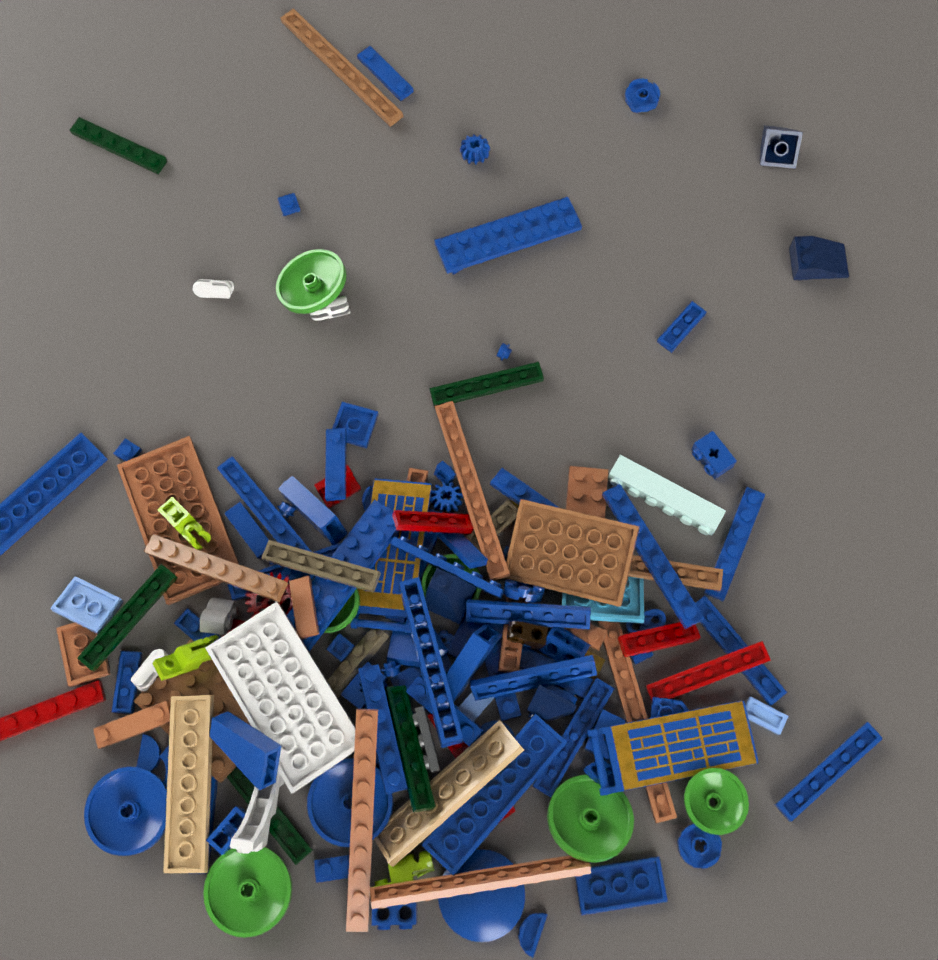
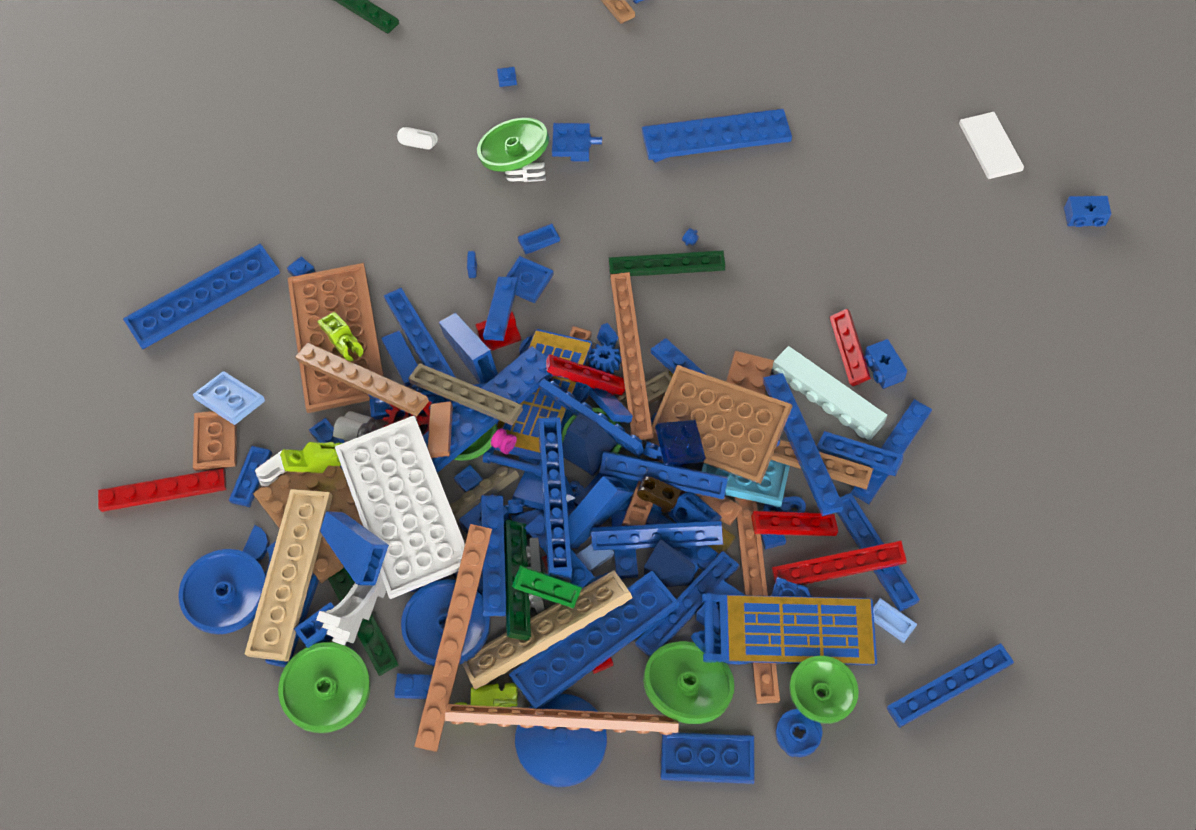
camera: 10 degrees right, 10 degrees down
(127, 618) = (265, 413): dark green plate -> none
(132, 725) = (246, 513): nougat plate -> none
(286, 509) = (443, 345): blue plate -> none
(297, 418) = (472, 264): none -> blue tile
(356, 378) = (538, 239): none -> blue tile
(367, 606) = (503, 441): none -> dark pink wheel
(369, 266) = (573, 141): none -> blue plate
(395, 917) = (465, 744): blue brick -> none
(441, 757) = (546, 586): none -> green plate
(475, 149) = (699, 53): blue gear -> none
(531, 931) = (604, 786): blue tile -> none
(538, 580) = (680, 442): none -> clear blue plate
(638, 103) = (874, 38): blue plate -> none
(677, 443) = (850, 347): none -> plate
(681, 326) = (875, 243): blue tile -> none
(707, 554) = (860, 453): none -> blue plate
(773, 203) = (991, 145): none -> white tile
(780, 147) = (1007, 95): dark blue slope -> none
(817, 258) = (1027, 201): dark blue slope -> none
(875, 260) = (1087, 211): none -> blue brick

